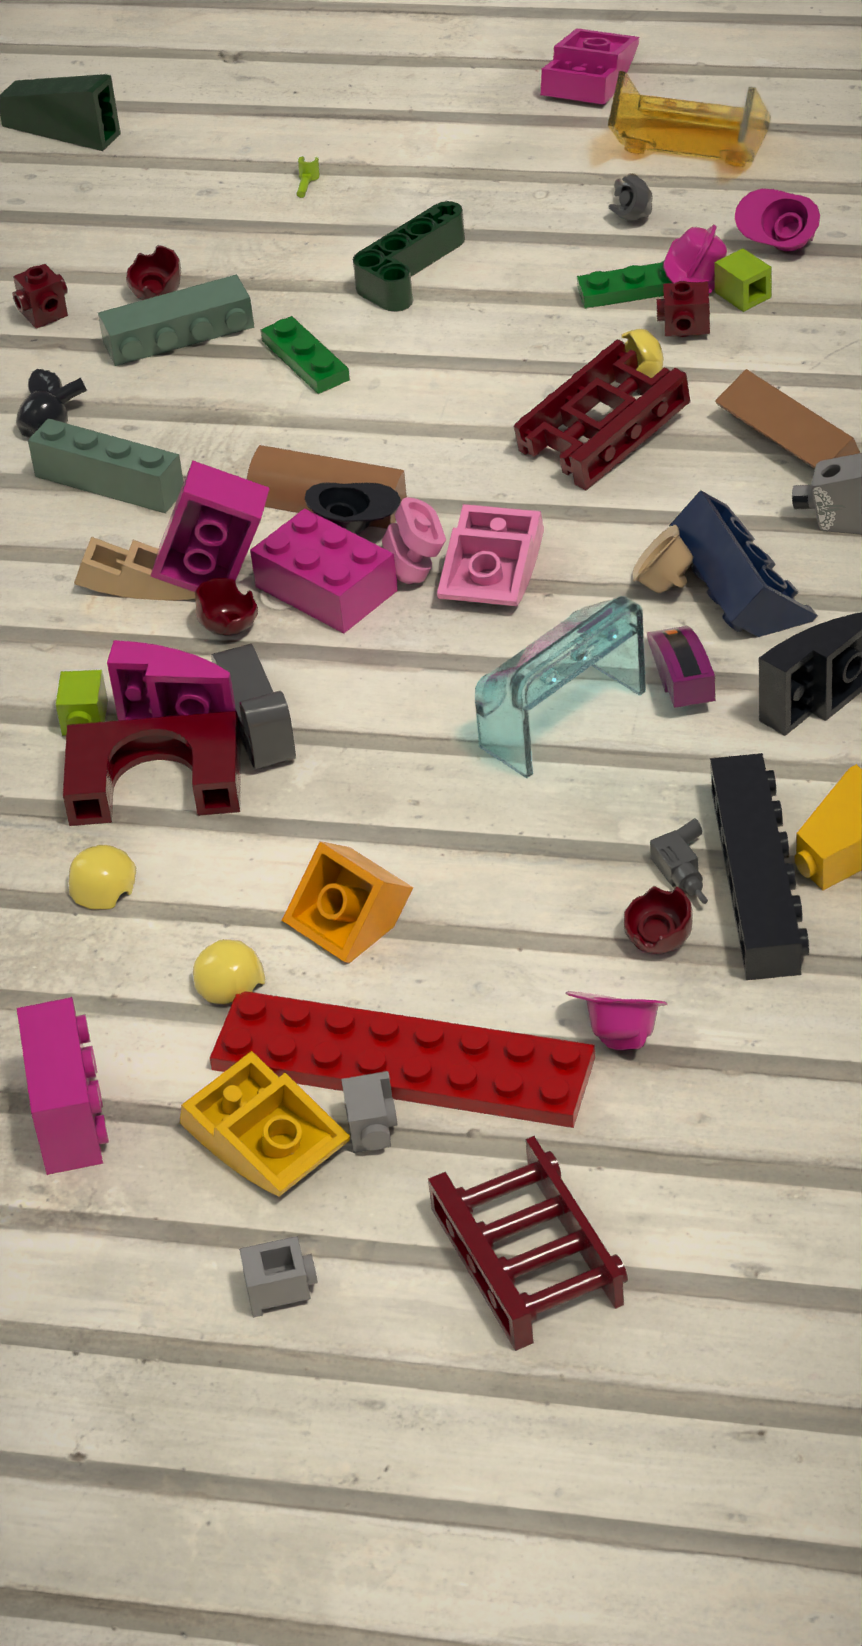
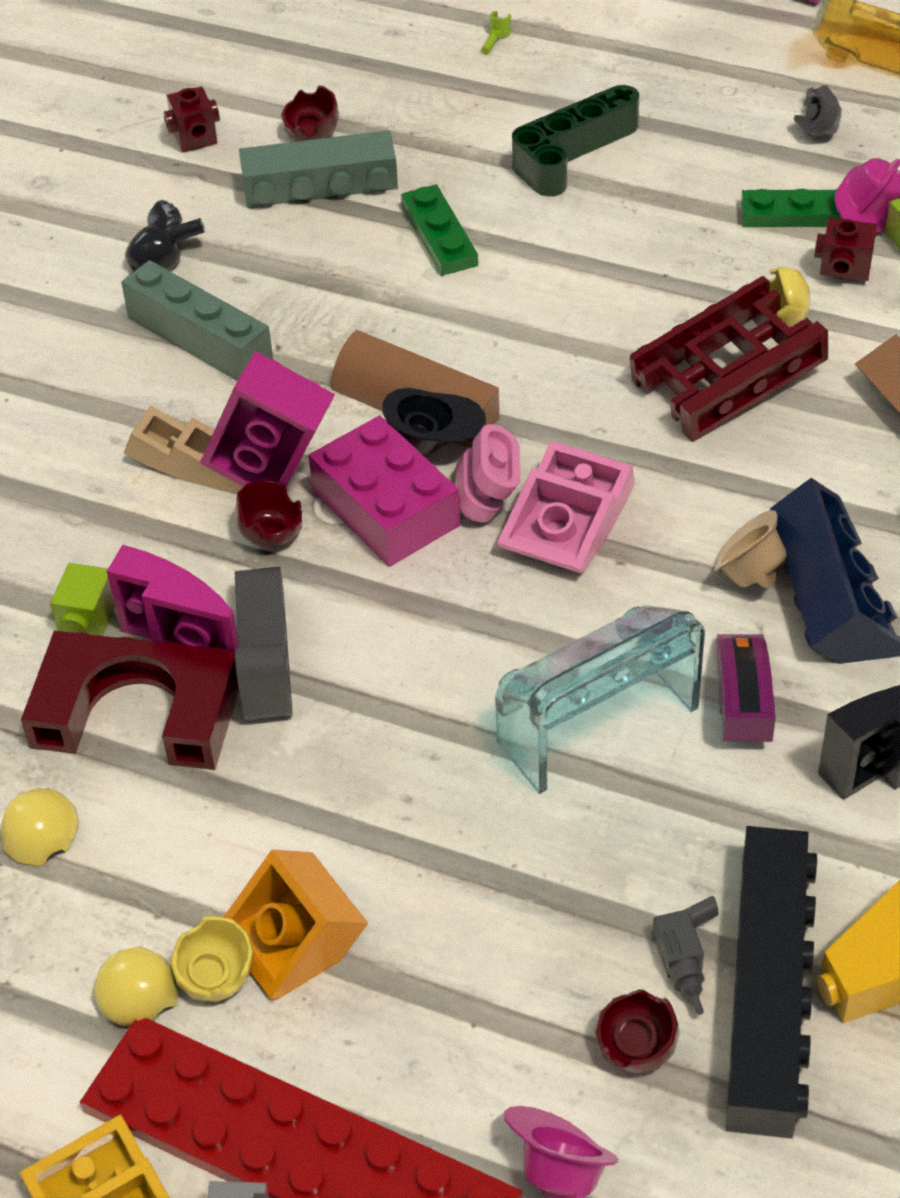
camera: 10 degrees right, 5 degrees up
(290, 937) = (212, 959): none -> light yellow hair

